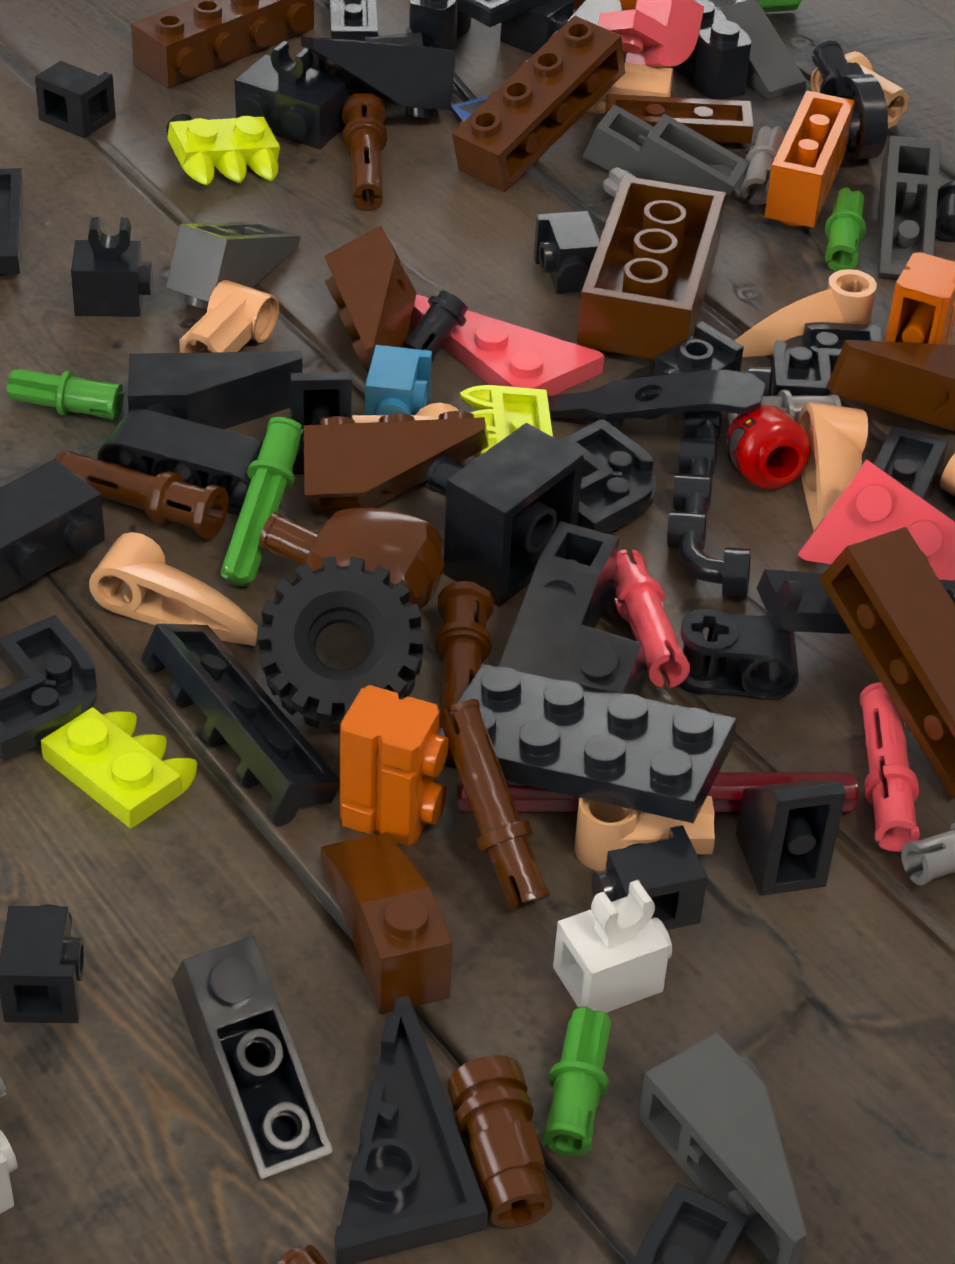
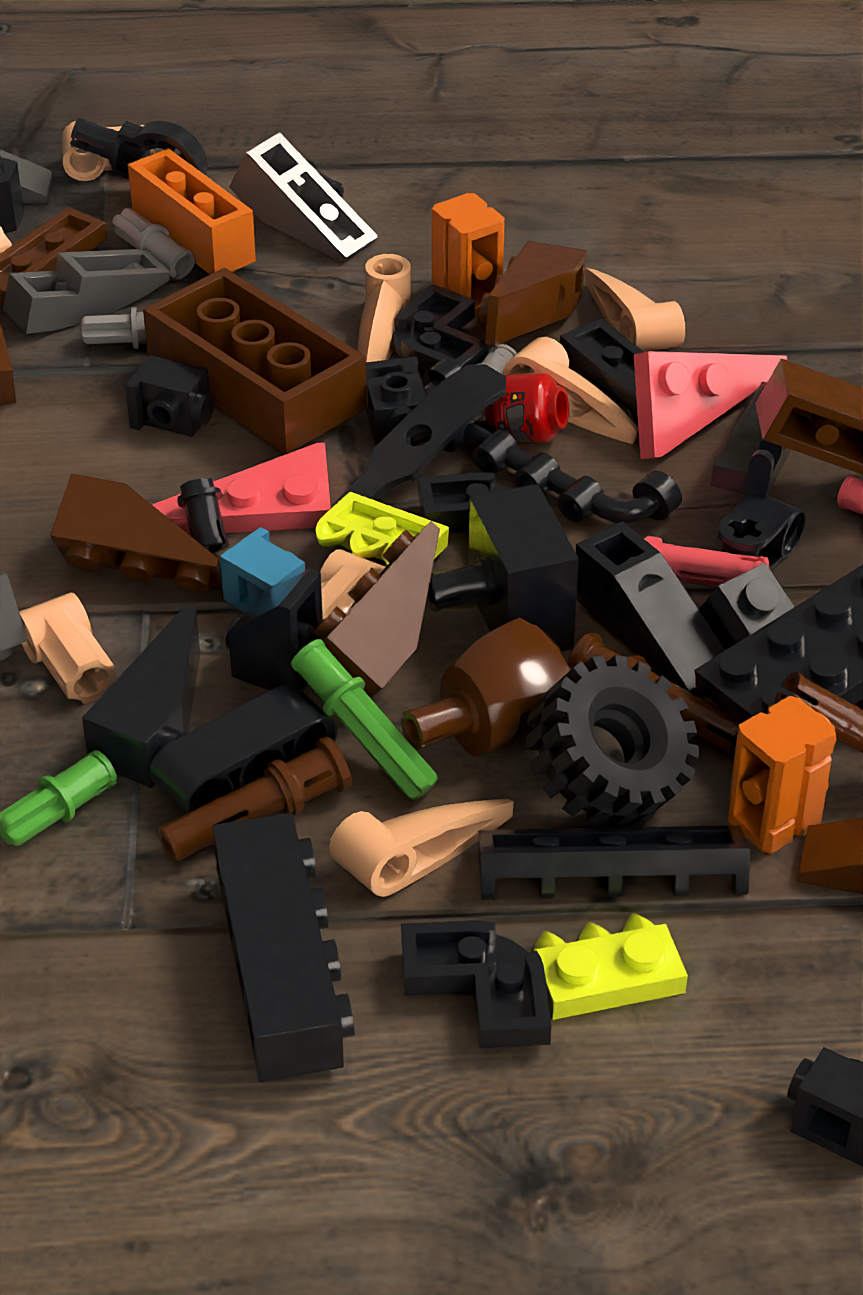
camera: 55 degrees left, 0 degrees up
(845, 230) = (286, 246): bright green axle -> none

